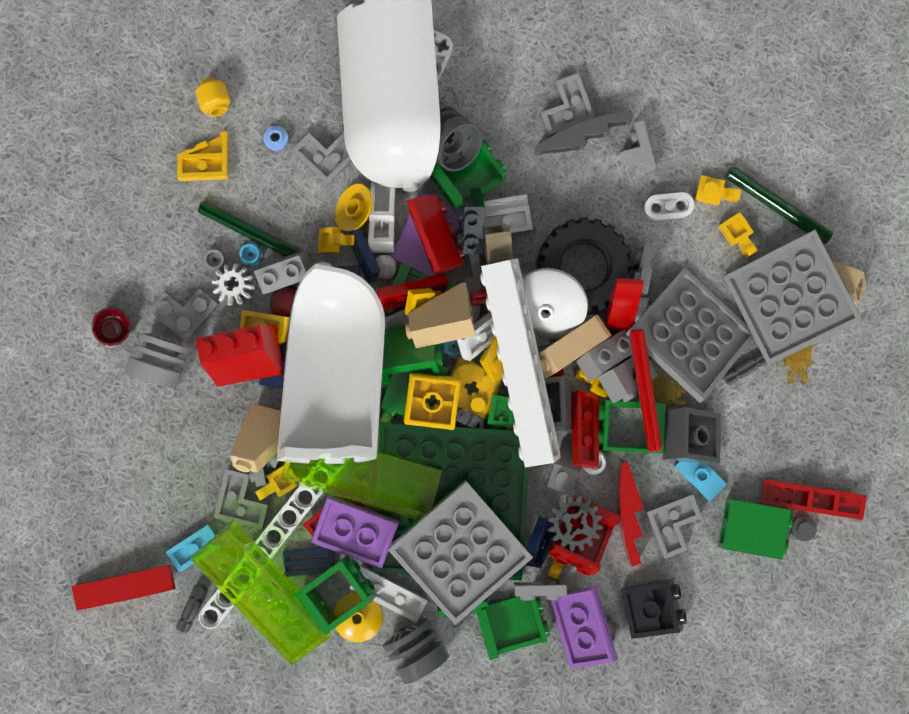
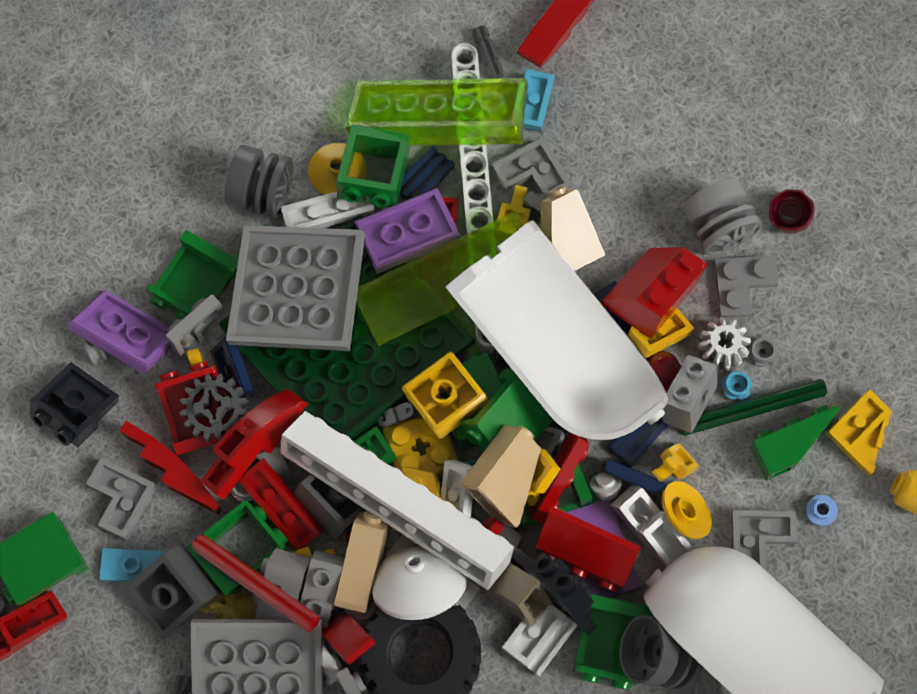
camera: 145 degrees right, 15 degrees down
(258, 189) = (785, 448): none -> green slope
(563, 483) = (246, 438): none -> red slope

